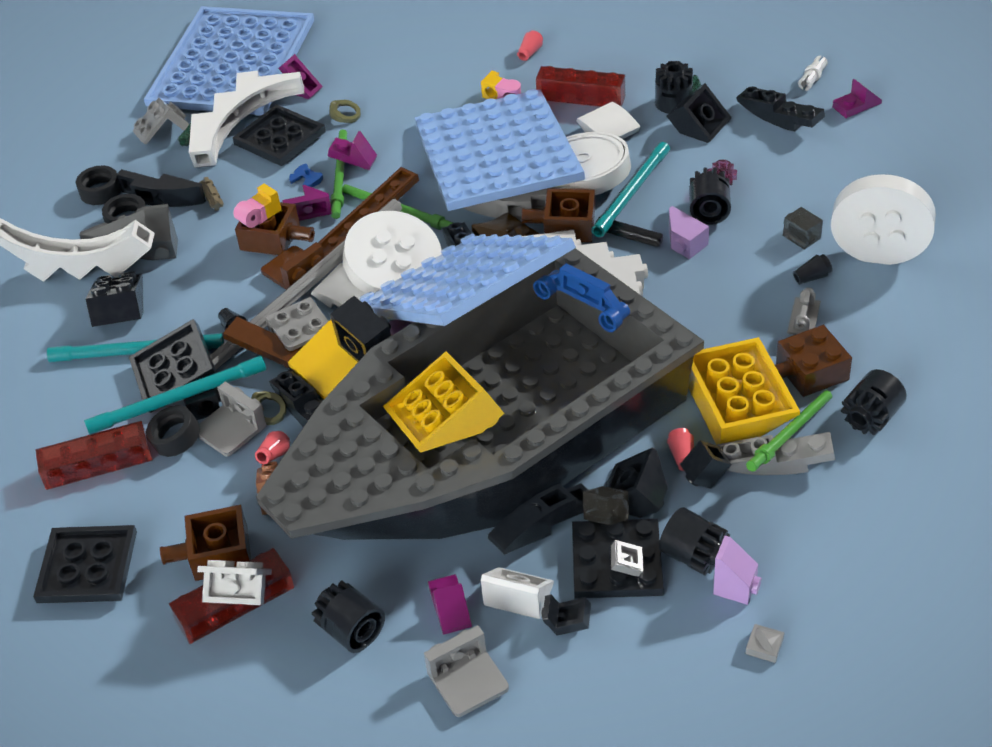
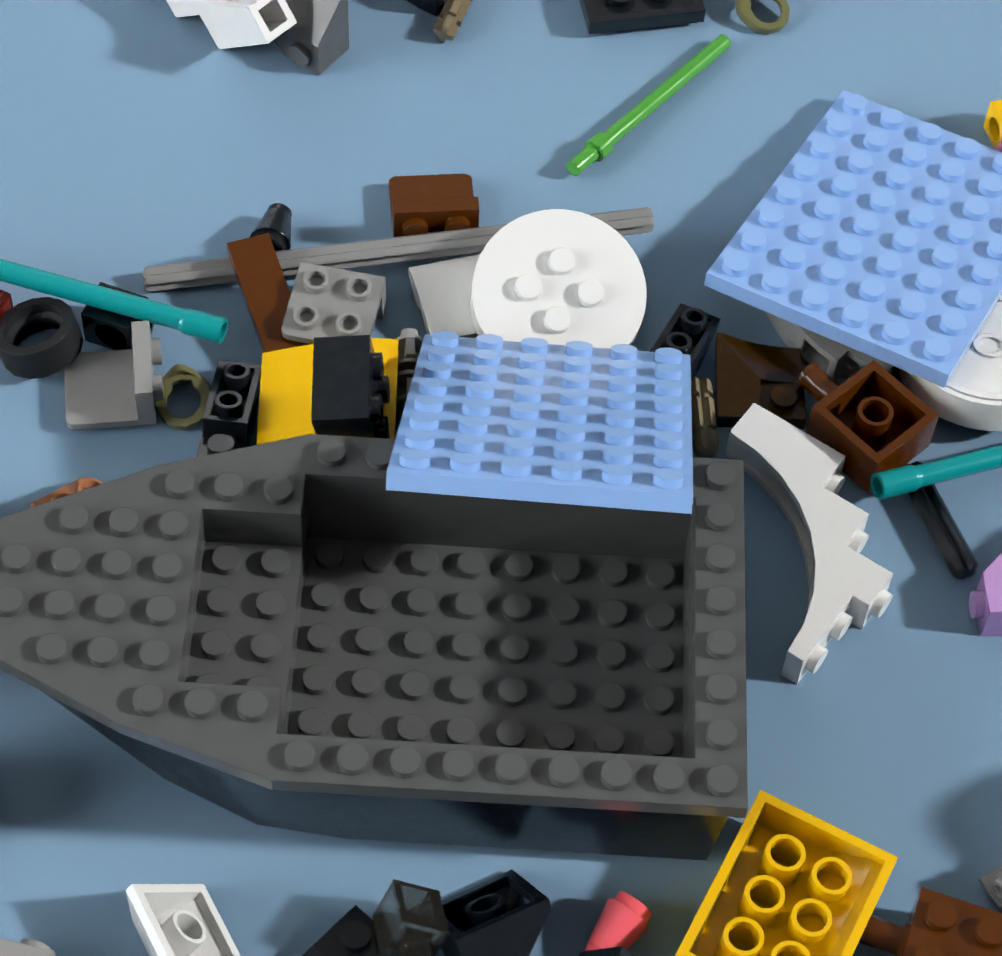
camera: 35 degrees right, 10 degrees up
(68, 353) = (51, 121): teal piece -> none
(115, 299) = (176, 83): black slope -> none
(172, 361) = (134, 238): black plate -> none
(259, 207) = (451, 85): leg -> none
(273, 447) = (118, 461): coral cone -> none
(275, 233) = (460, 124): reddish brown brick -> none
(311, 178) = (608, 84): blue piece -> none
(312, 204) = (551, 128): magenta slope -> none
(355, 153) = (697, 86): magenta slope -> none
(392, 188) = (657, 190): reddish brown tile -> none
(435, 221) = (691, 282): bright green bar -> none
(443, 406) = (290, 605): yellow slope -> none
(450, 604) = (88, 880): magenta slope -> none
(536, 517) = (315, 858): black slope -> none
(586, 289) = (657, 599): blue plate -> none

